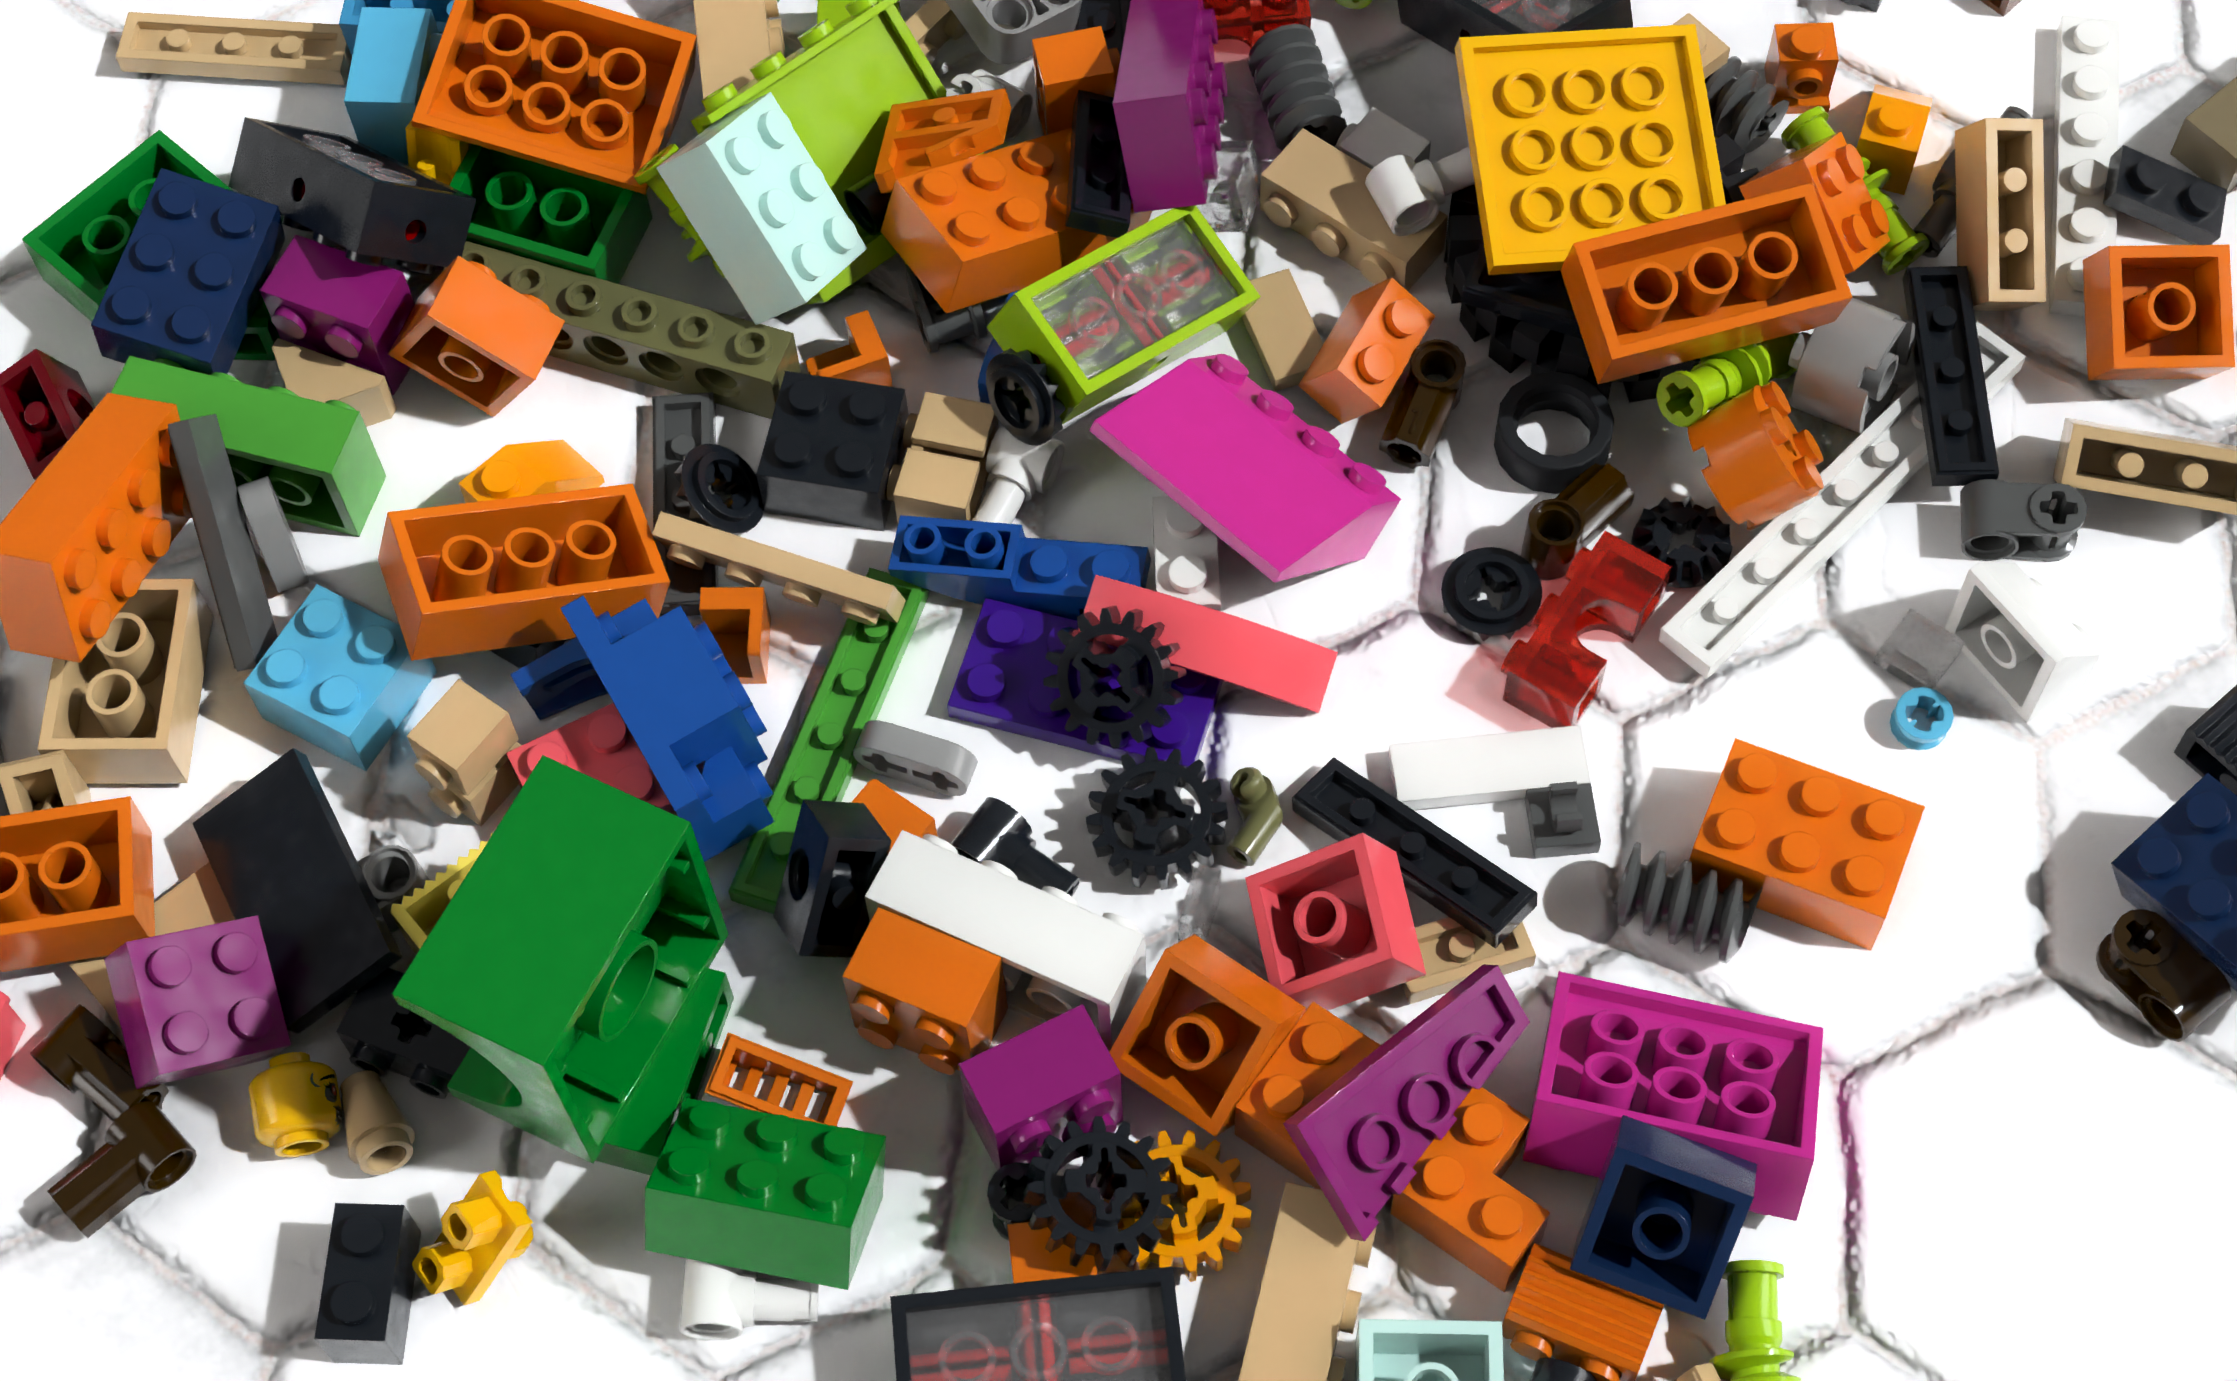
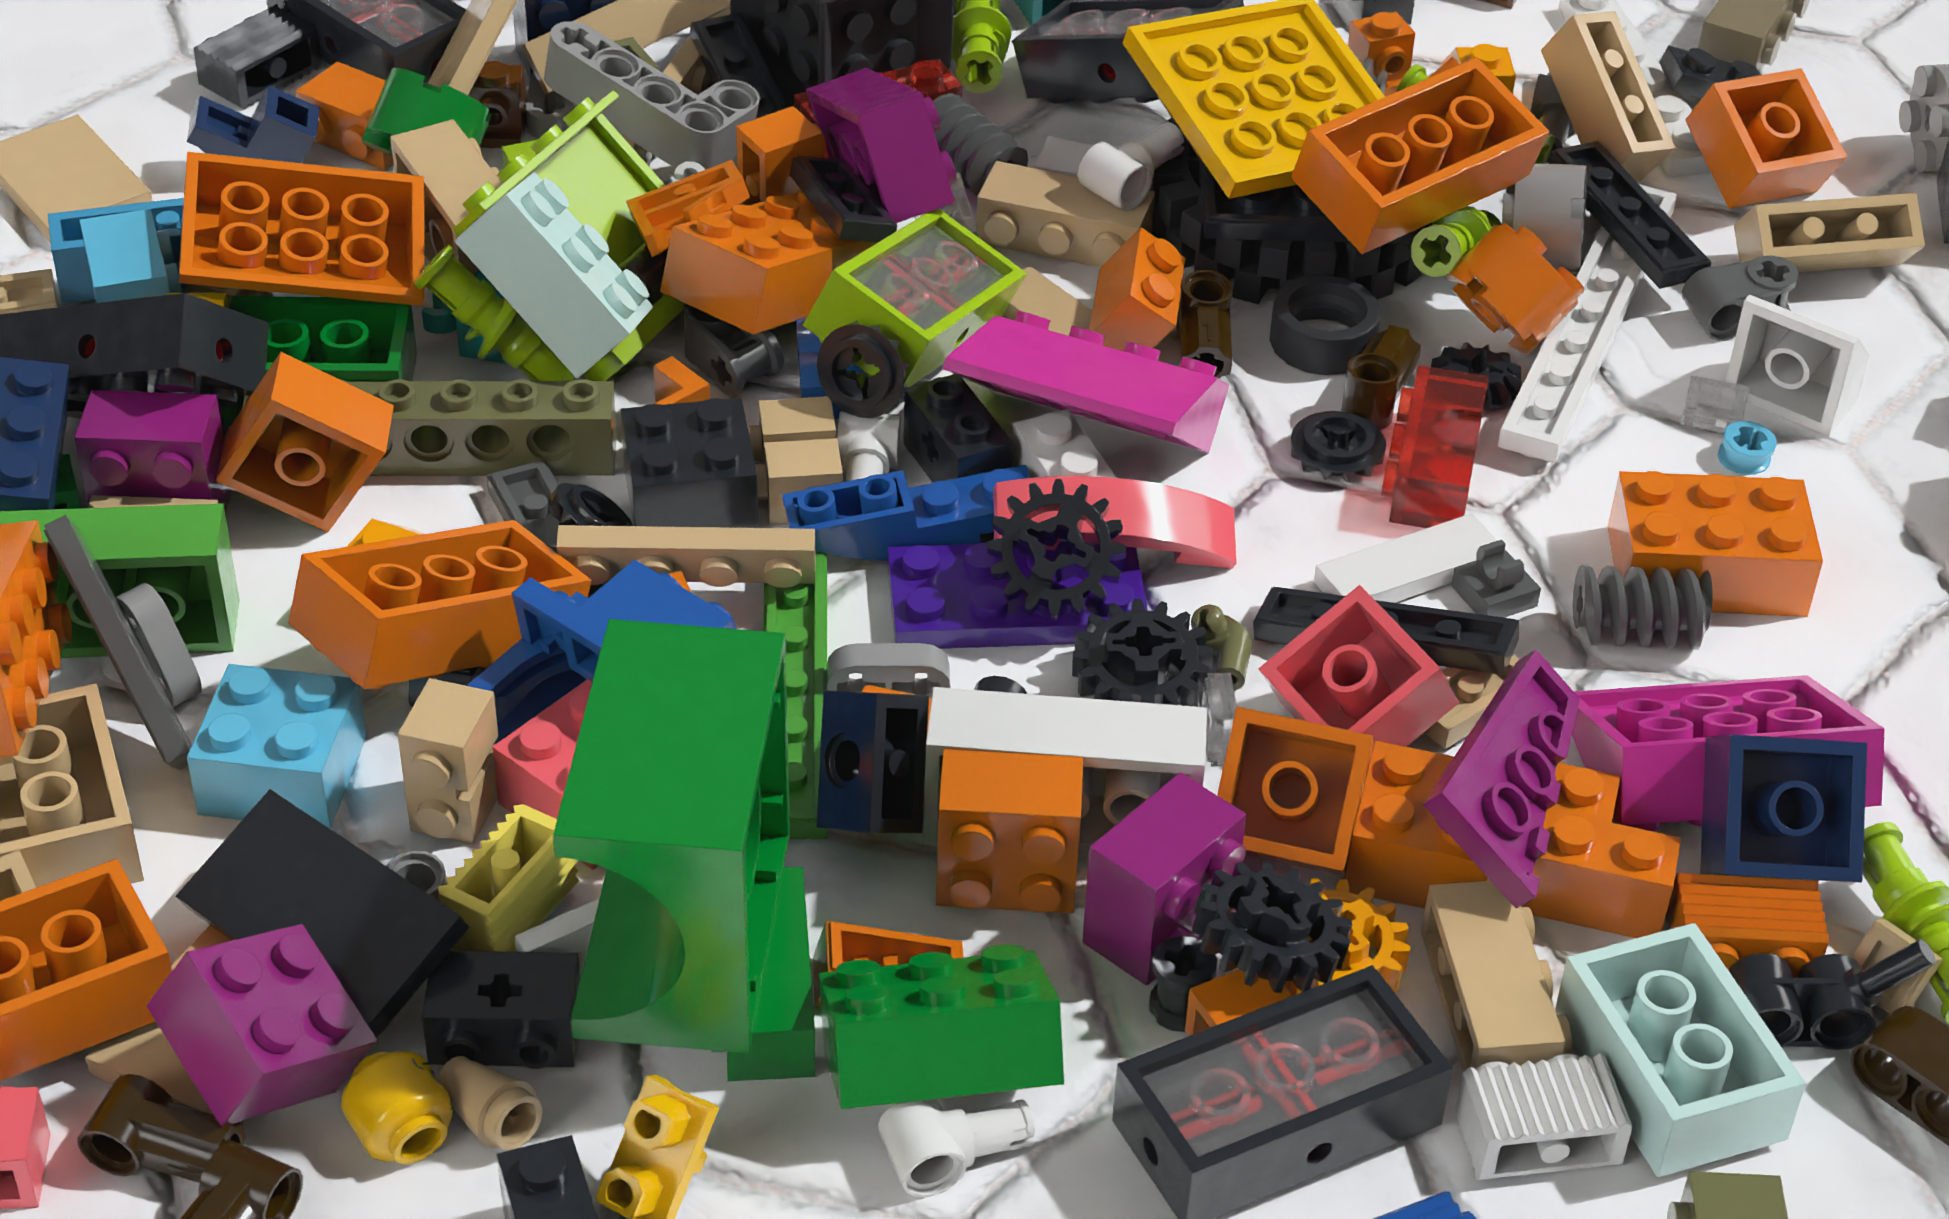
camera: 25 degrees left, 20 degrees down
(1102, 490) = (953, 431): none -> black brick

